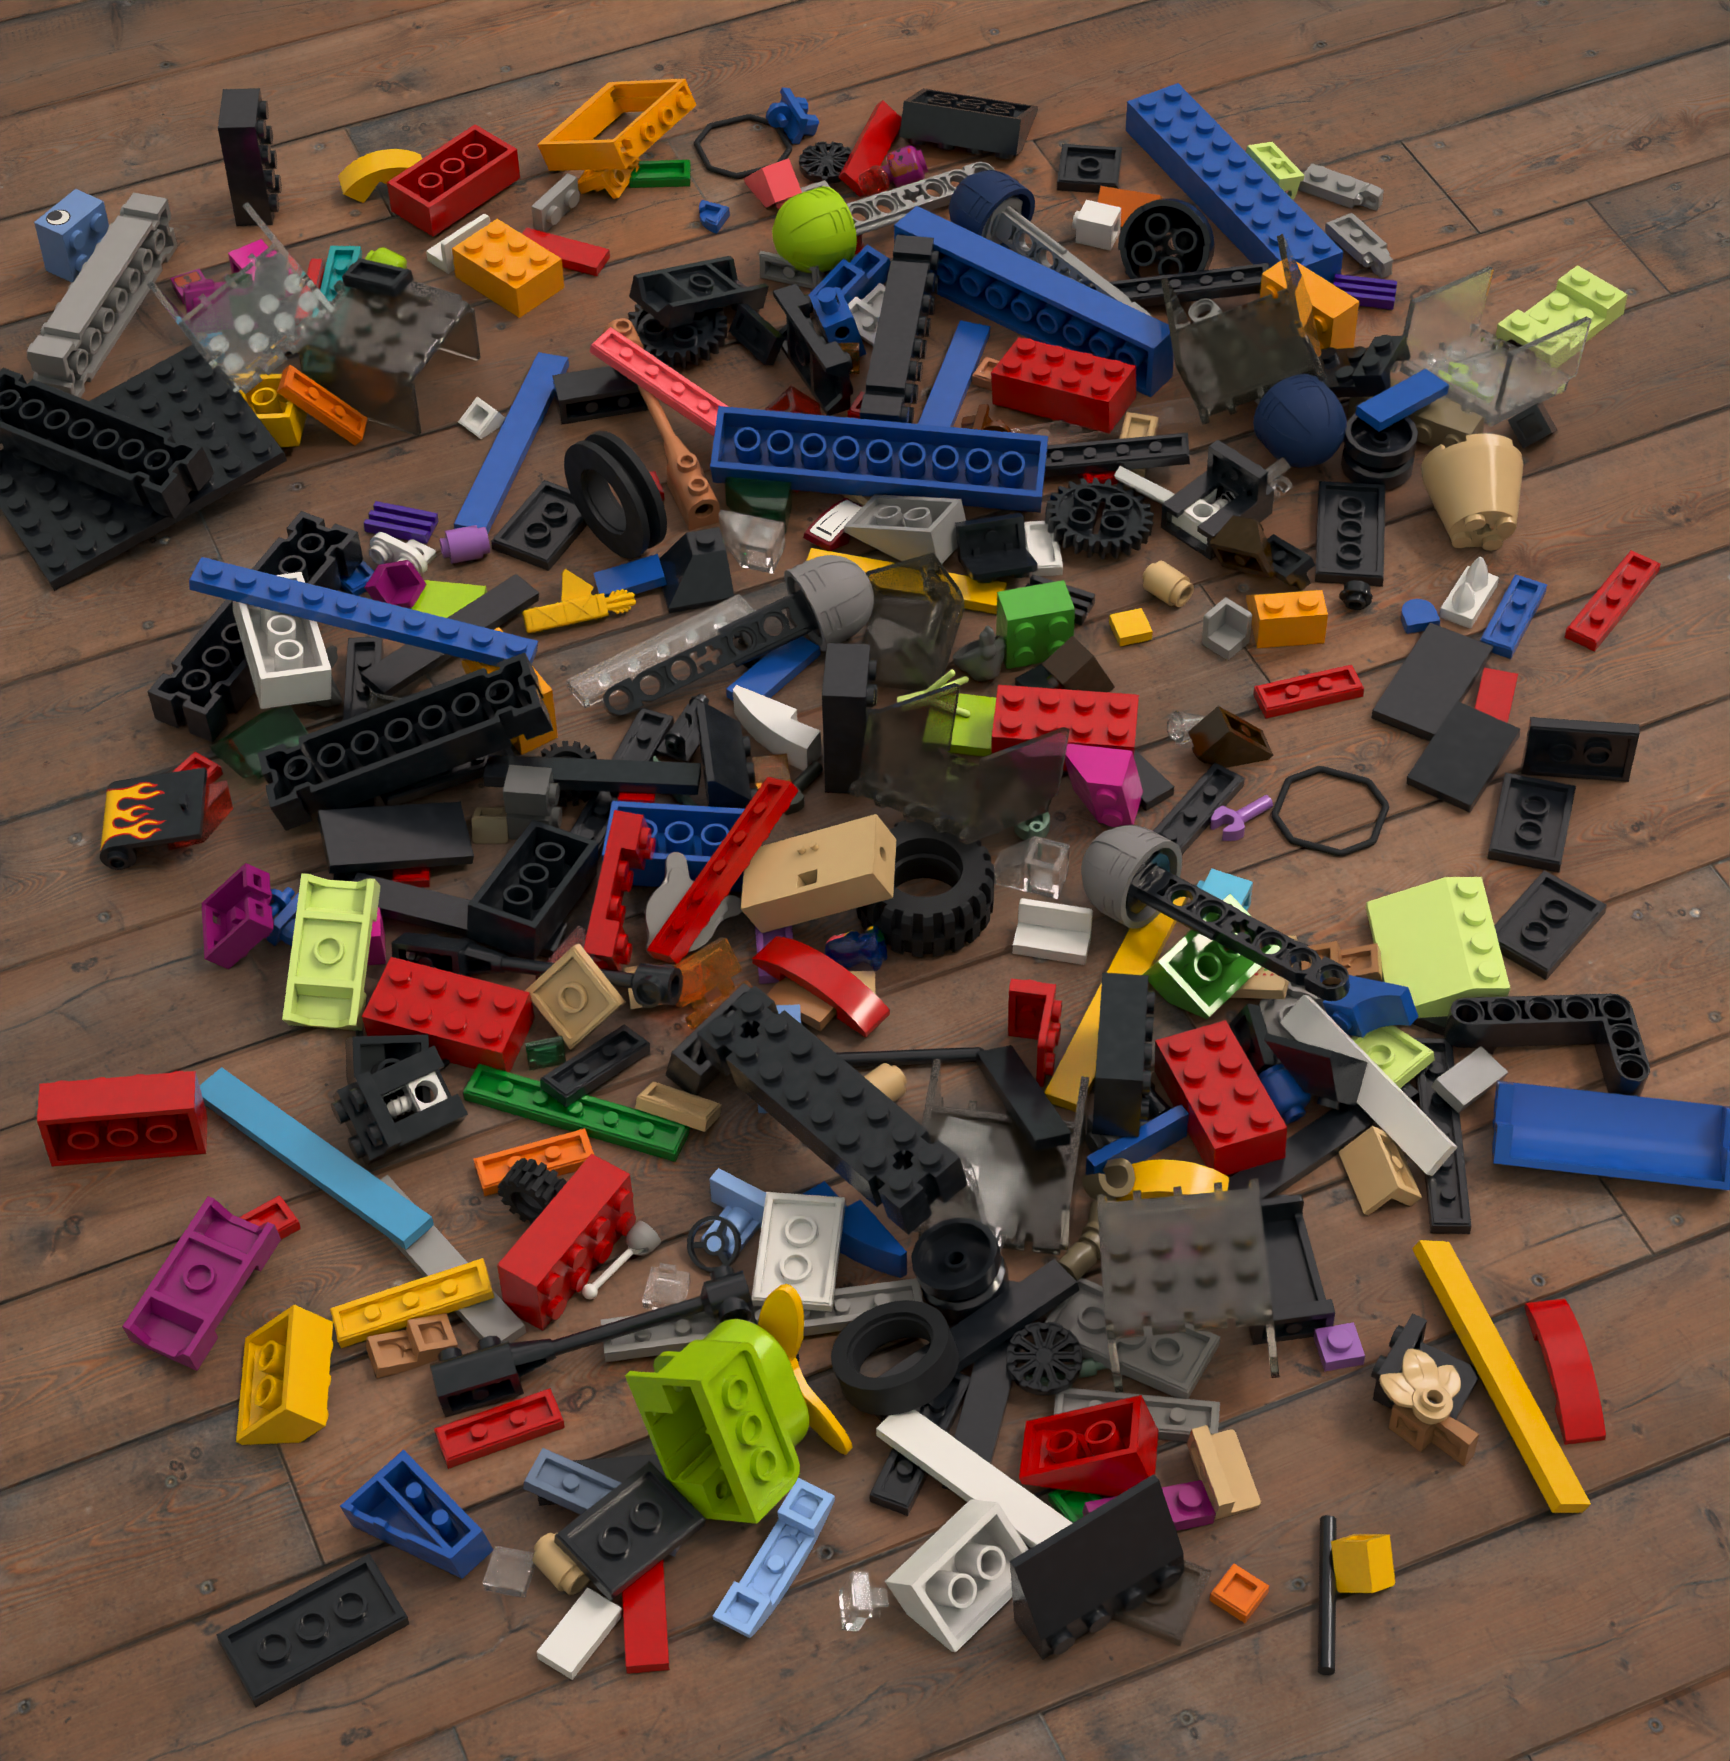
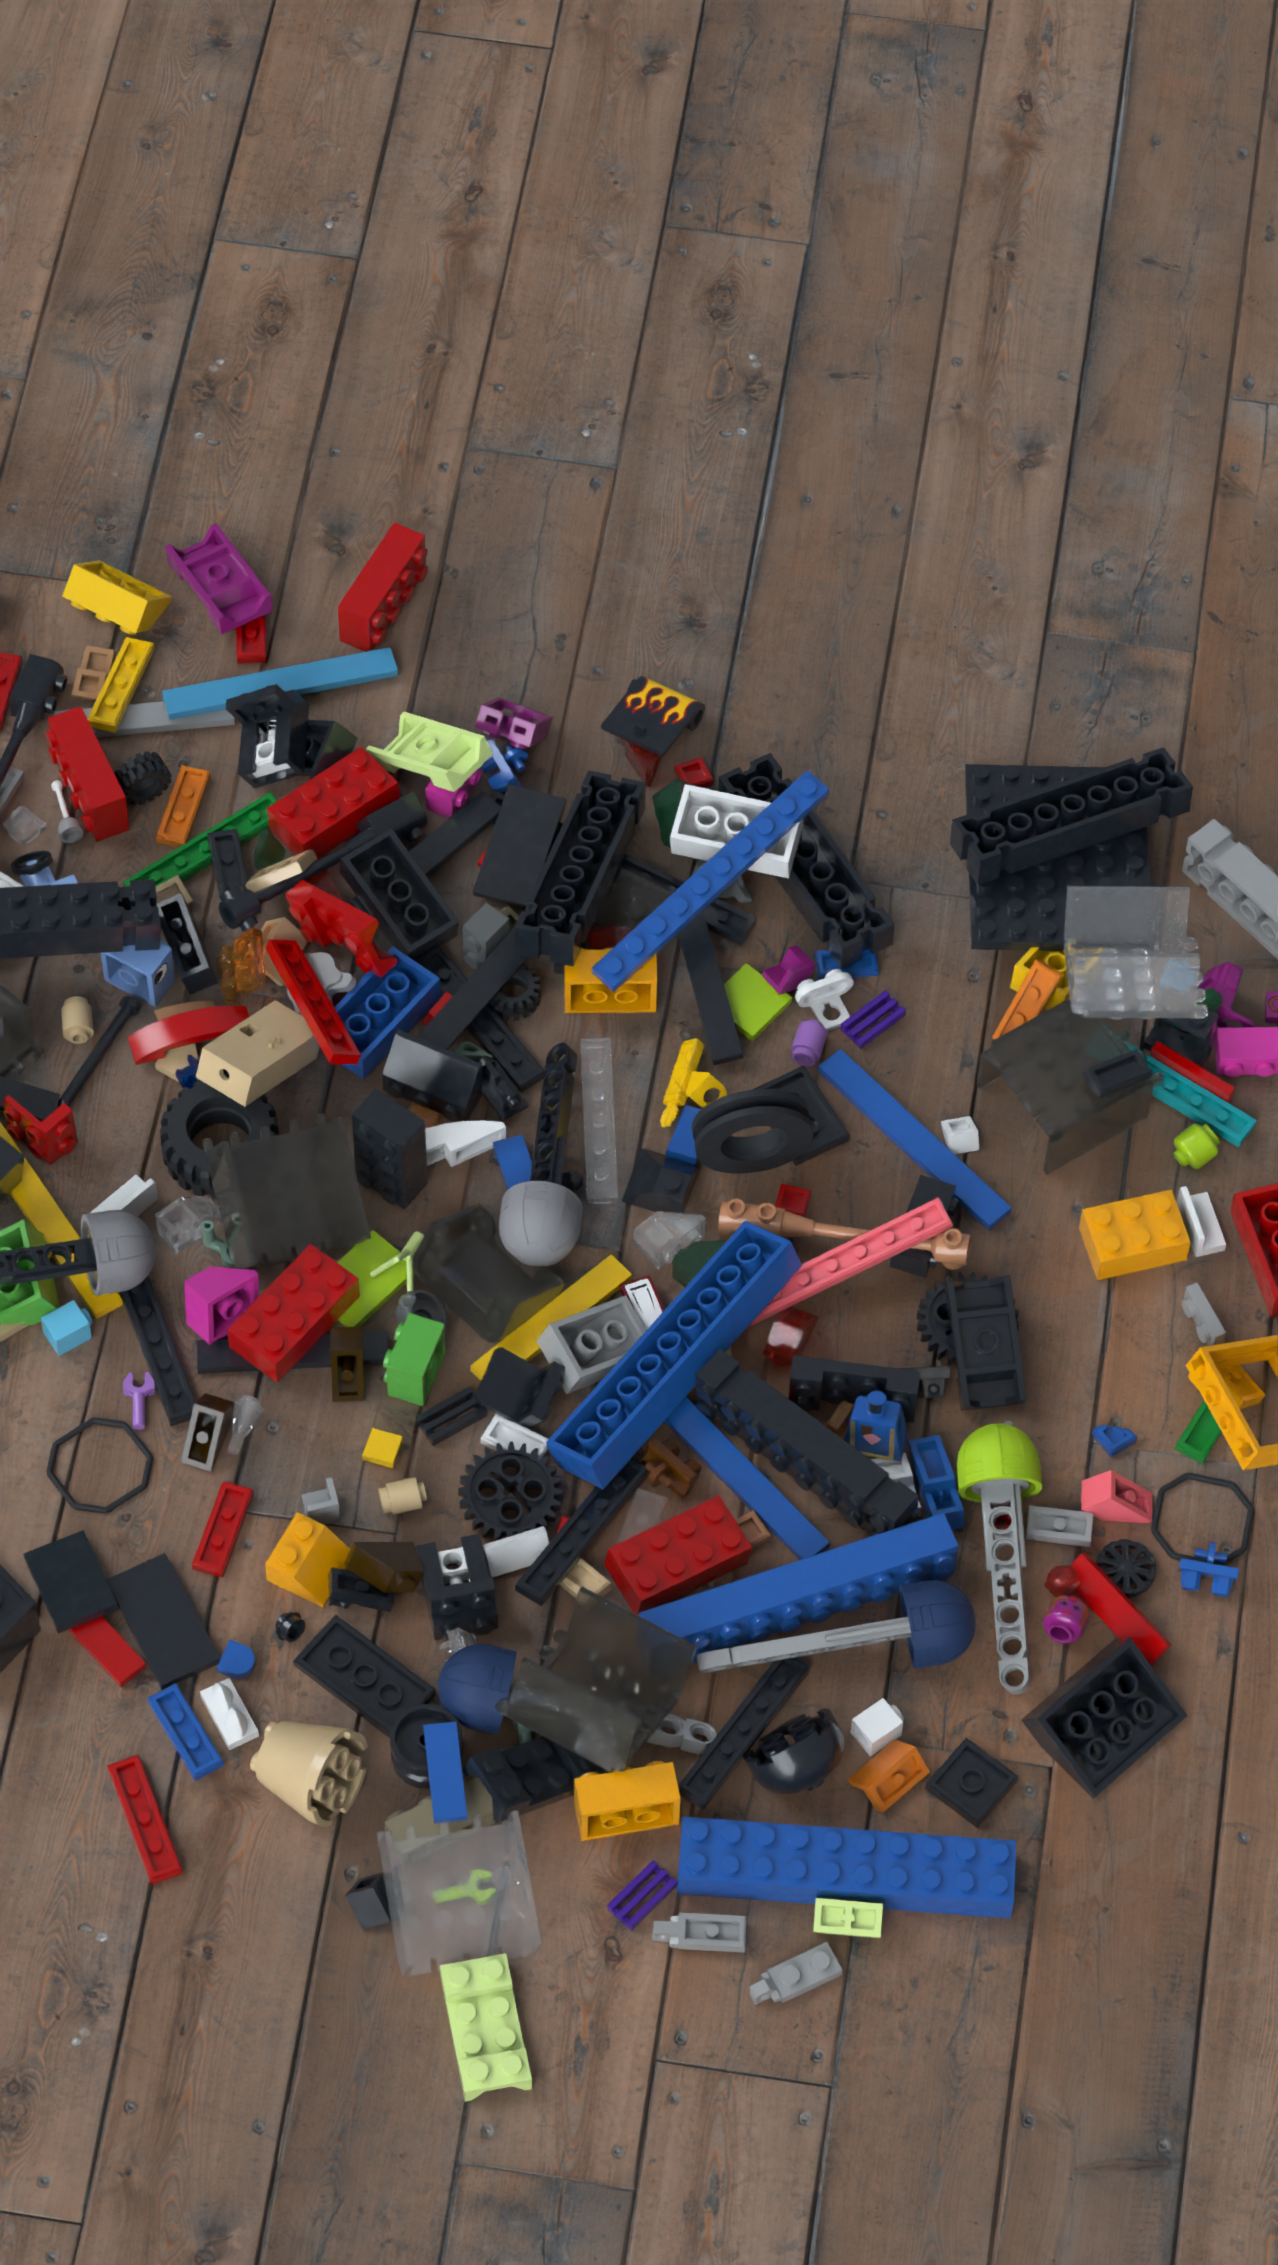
camera: 120 degrees right, 10 degrees up
(574, 254) = (1141, 1296): red tile -> none

